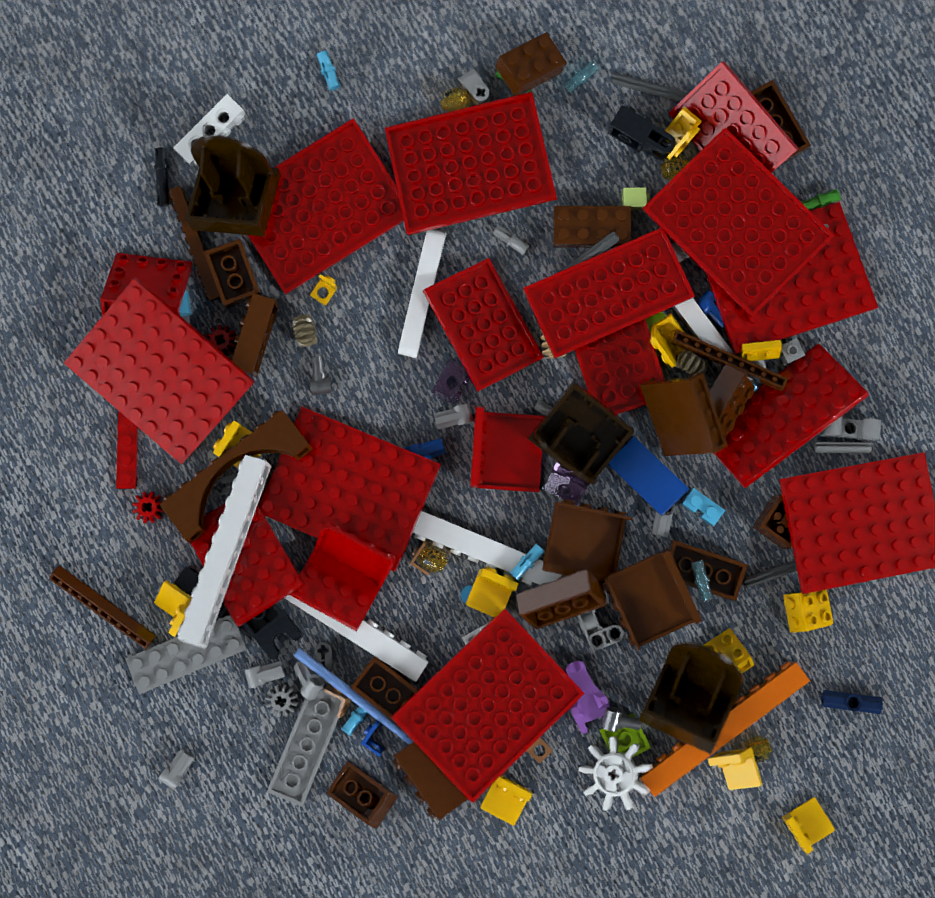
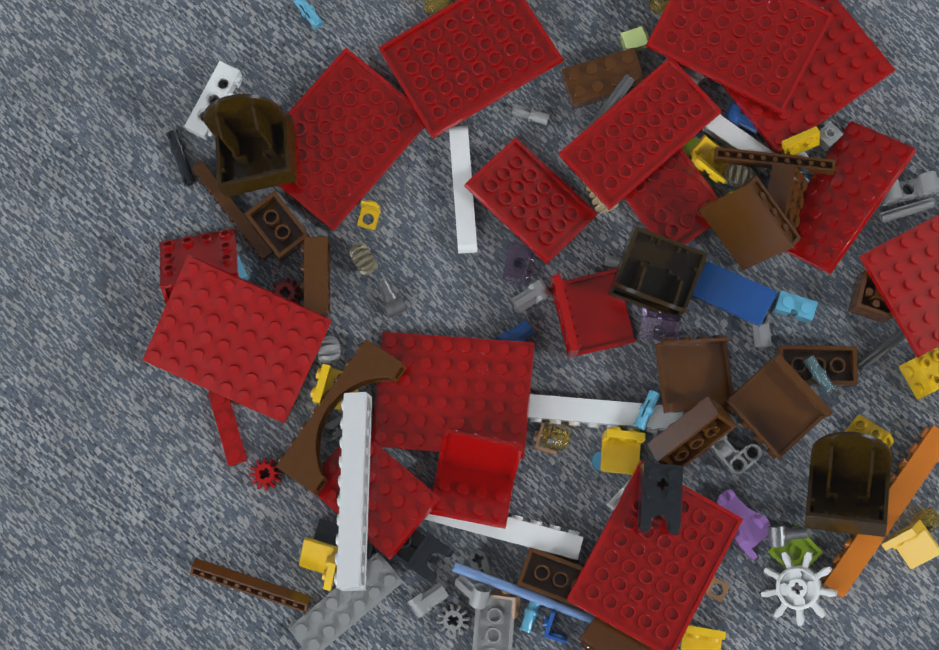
camera: 15 degrees left, 5 degrees down
(244, 409) = (329, 350): none -> light grey piece
(505, 653) = (657, 501): none -> black brick

